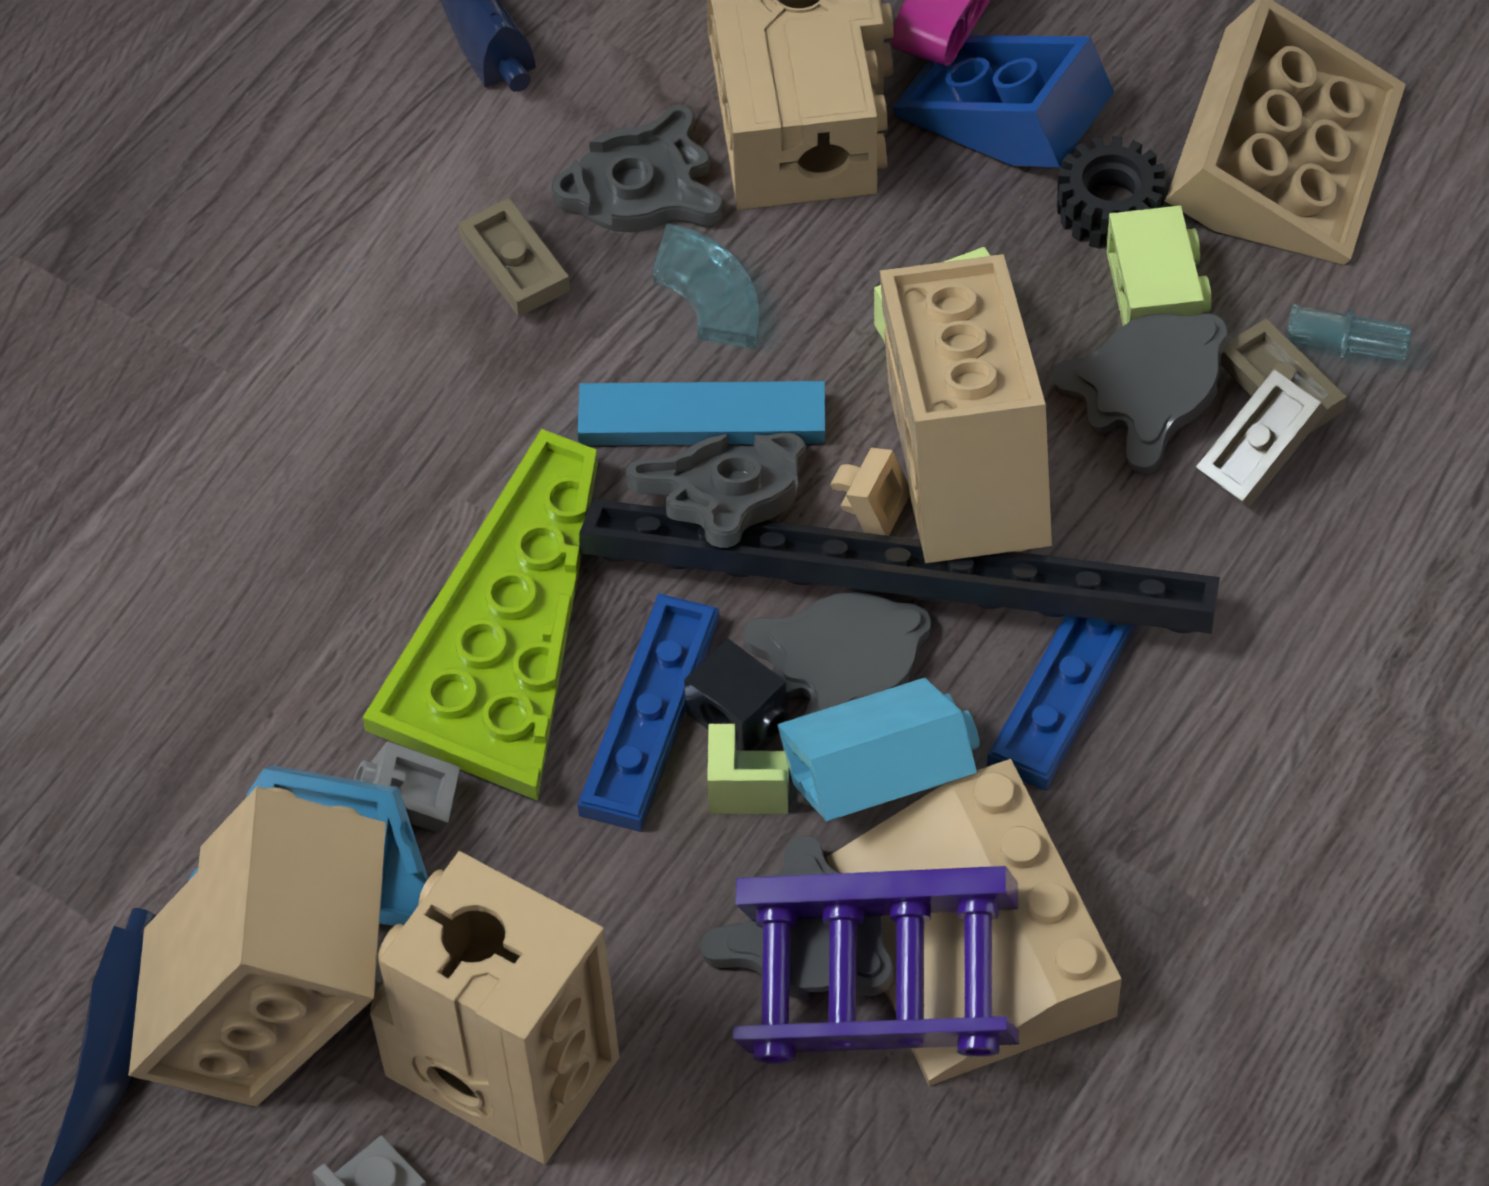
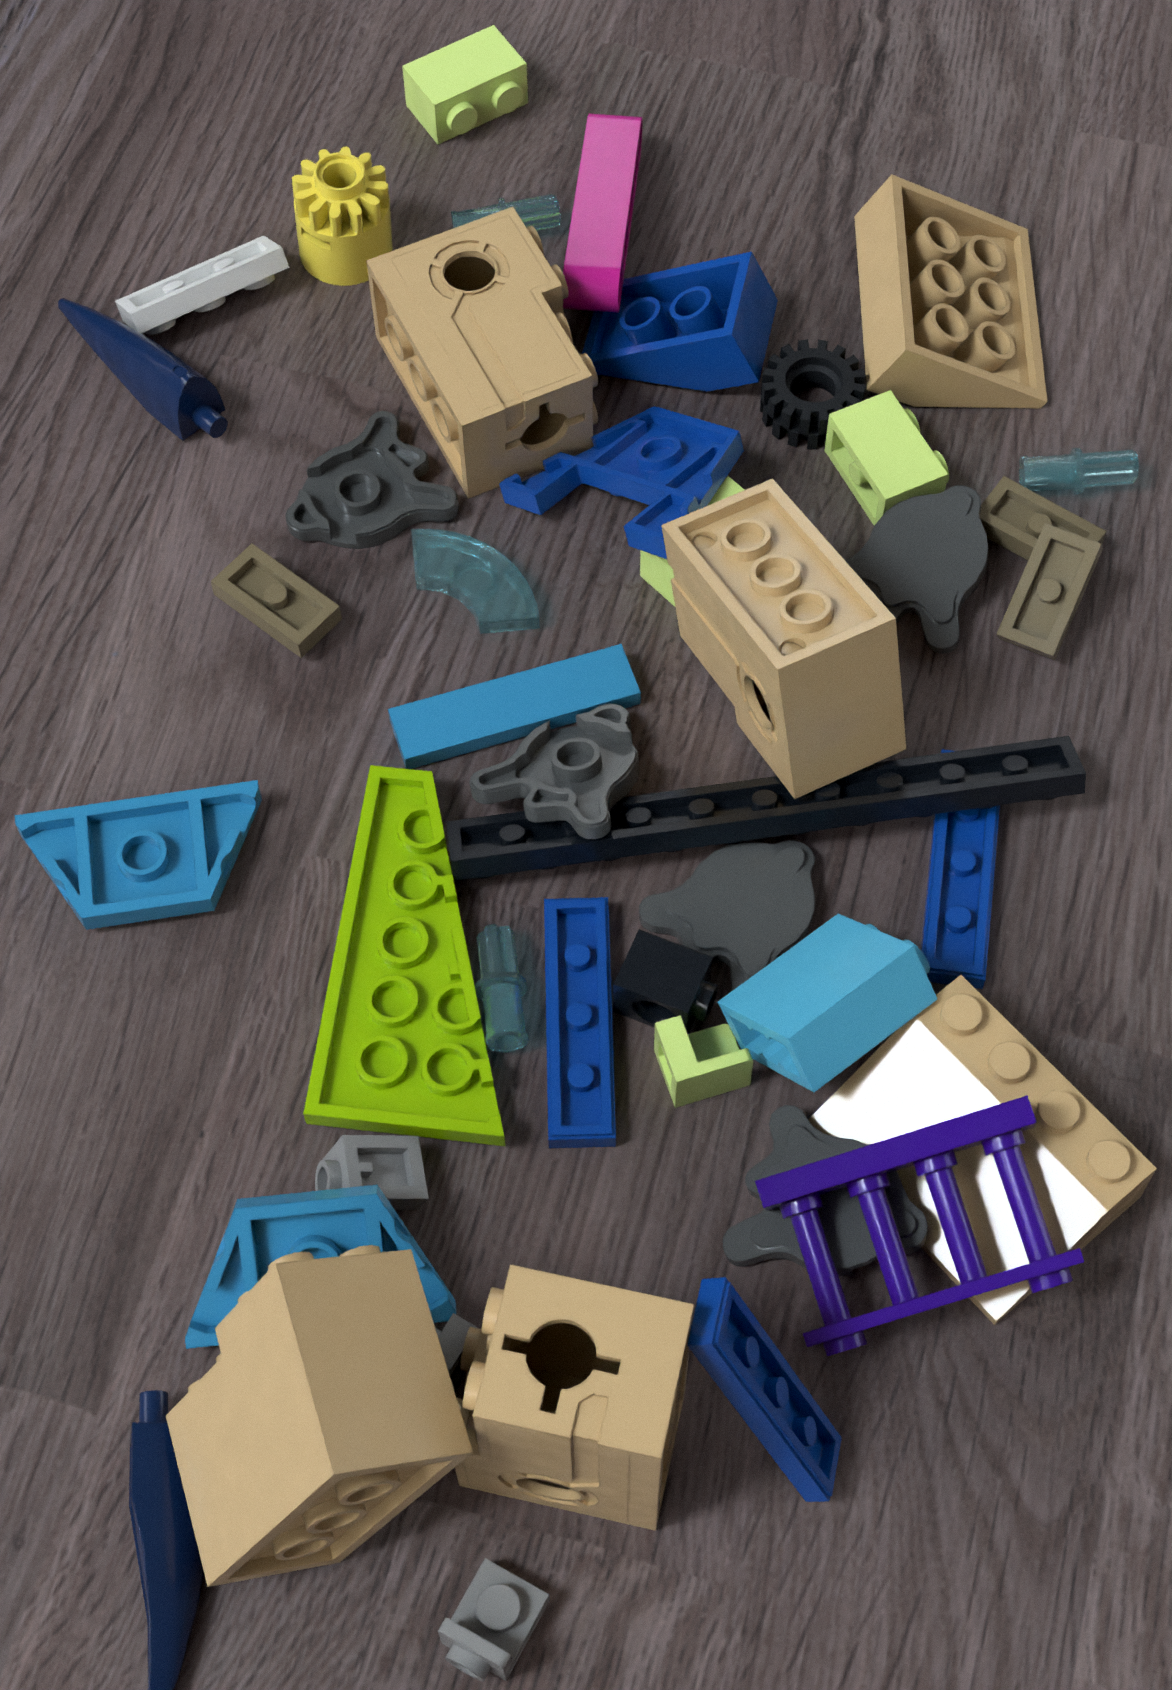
camera: 20 degrees left, 5 degrees up
(309, 453) = (143, 853): none -> dark azure wing
(586, 662) = (501, 989): none -> clear light blue axle
(666, 1049) = (764, 1389): none -> blue tile
(874, 490) = (710, 740): tan tile -> none
(915, 215) = (649, 458): none -> blue wing

